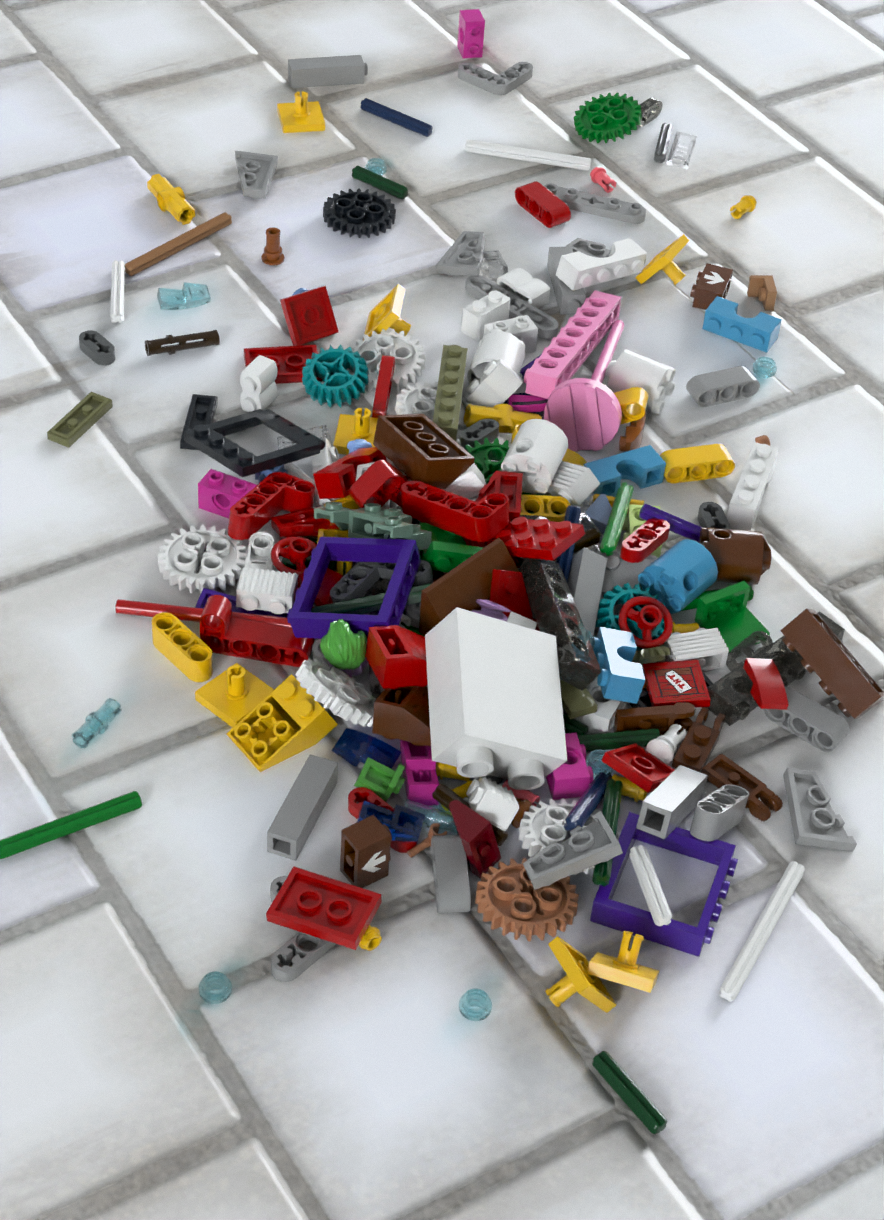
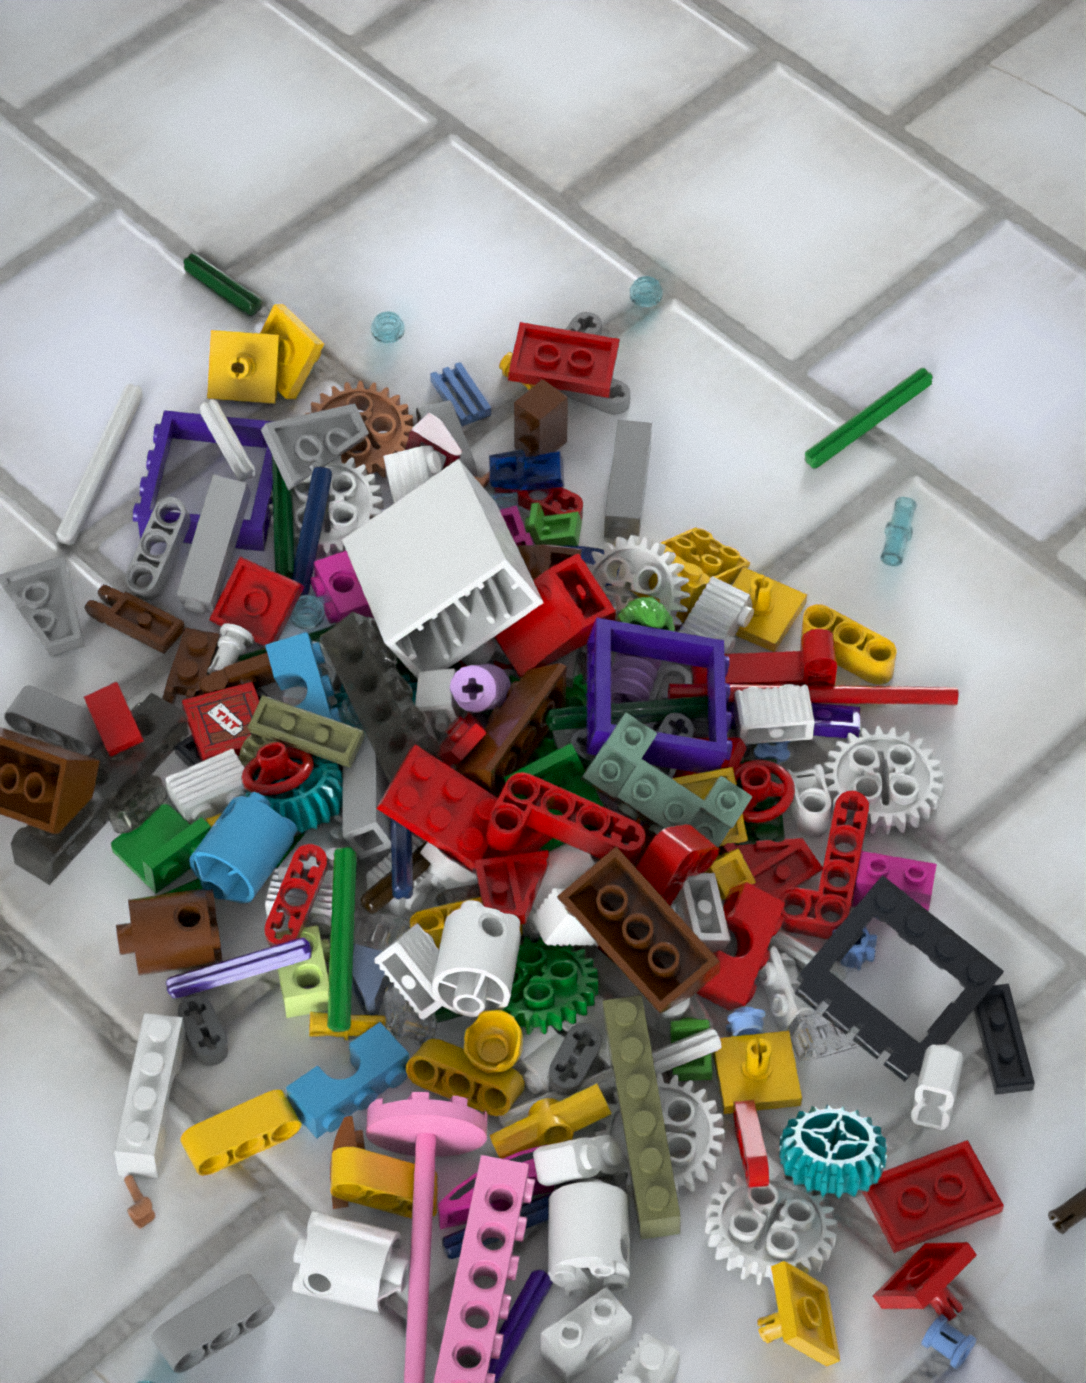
camera: 170 degrees right, 10 degrees up
(271, 670) = (719, 613): none -> white brick
(418, 906) = (450, 376): none -> medium blue tile
(622, 627) = (306, 731): none -> olive tile

